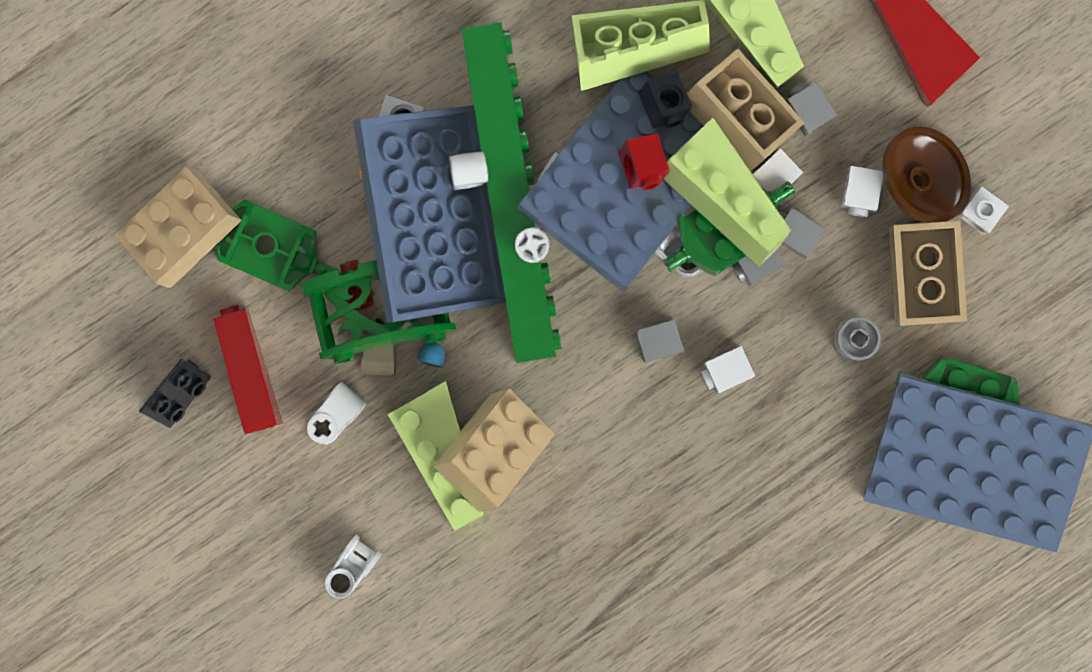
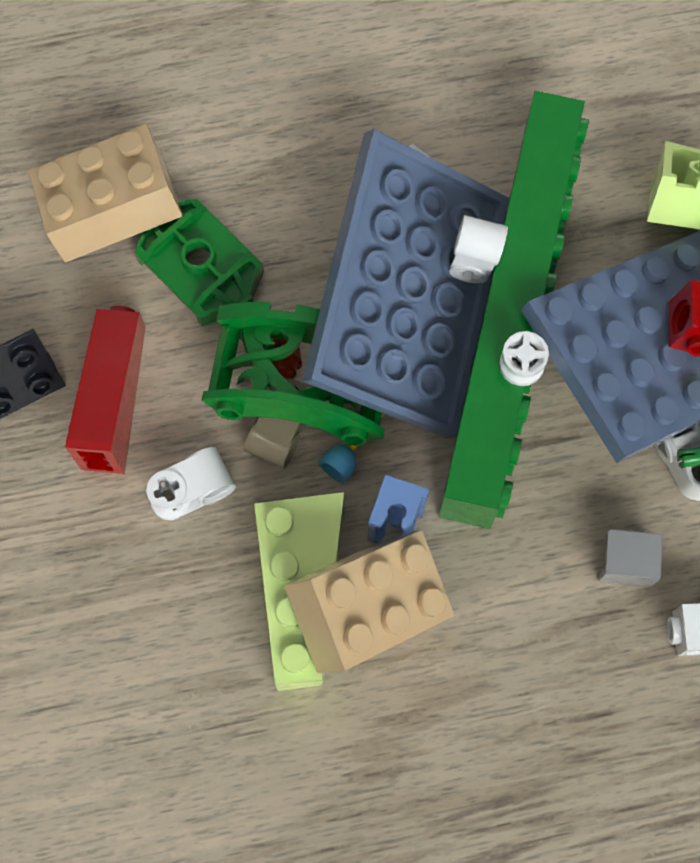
camera: 20 degrees right, 15 degrees down
(352, 566) = (126, 681): white piece -> none
(486, 373) = (396, 504): none -> medium blue hinge

